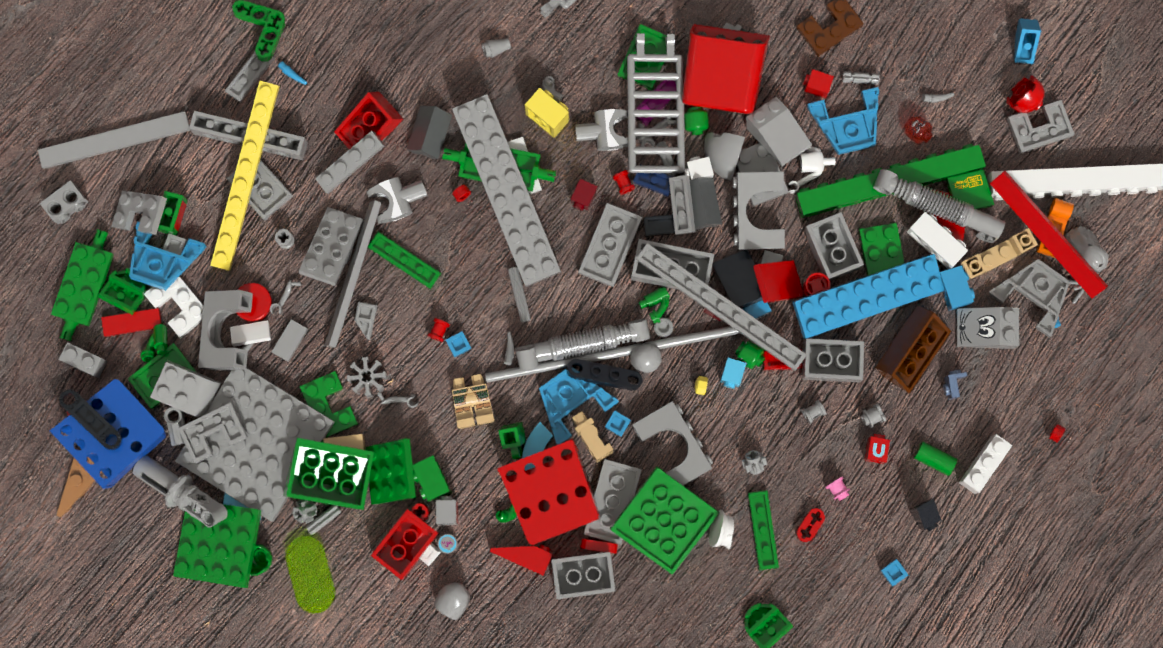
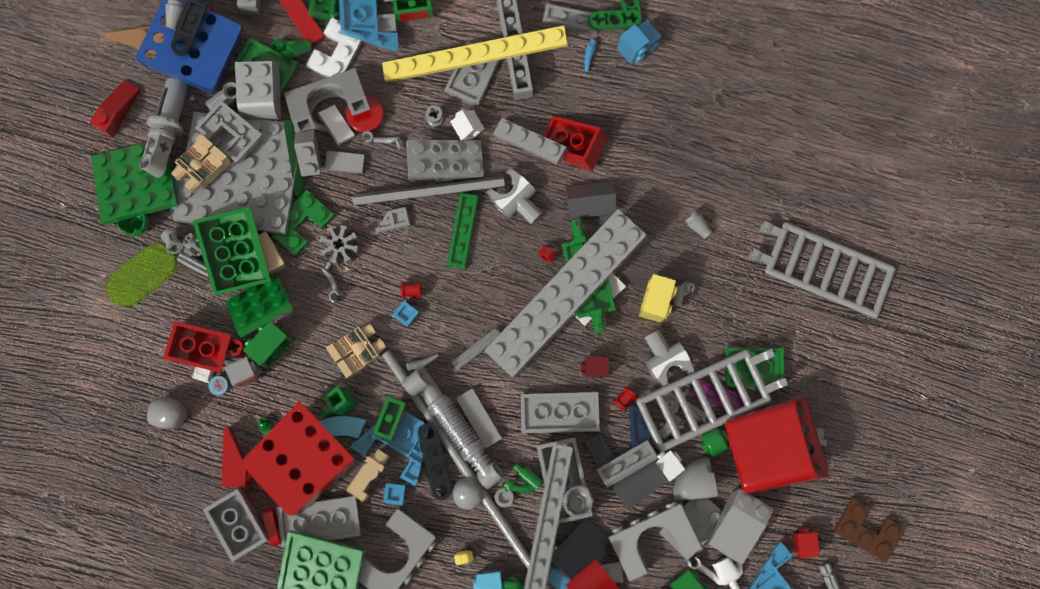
camera: 65 degrees right, 0 degrees up
(77, 433) = (173, 13): none -> light grey cone
(136, 534) = (115, 108): none -> red slope
(232, 471) = (201, 163): none -> tan hips
(261, 382) = (290, 135): none -> green sticker
(267, 368) = (307, 153): none -> light grey piece
(292, 531) = (171, 241): none -> light grey bush
(303, 23) = (638, 41): none -> dark azure brick
(307, 212) = (467, 124): none -> white brick
(549, 395) = (390, 418): none -> green brick
(582, 319) = (478, 418): none -> light grey tile
(696, 259) = (577, 501): none -> light grey hair

